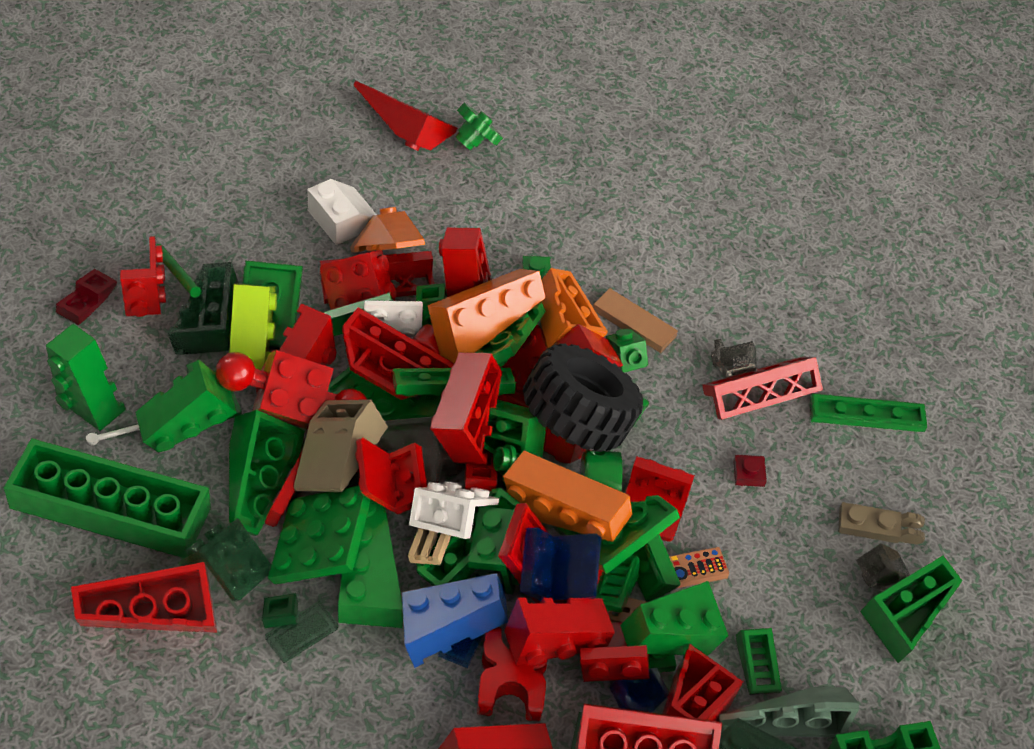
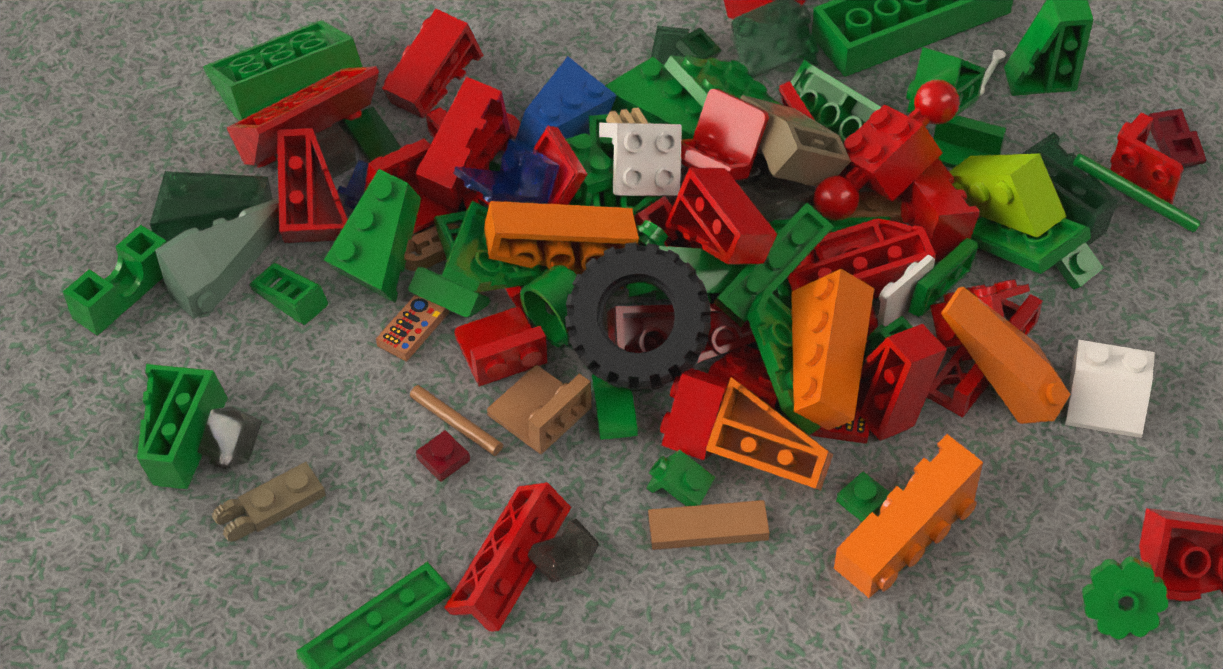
camera: 145 degrees right, 0 degrees up
(534, 229) = (911, 519): none -> orange wedge
(668, 437) = (541, 407): none -> medium nougat bracket
(722, 486) = (456, 420): none -> medium nougat bar

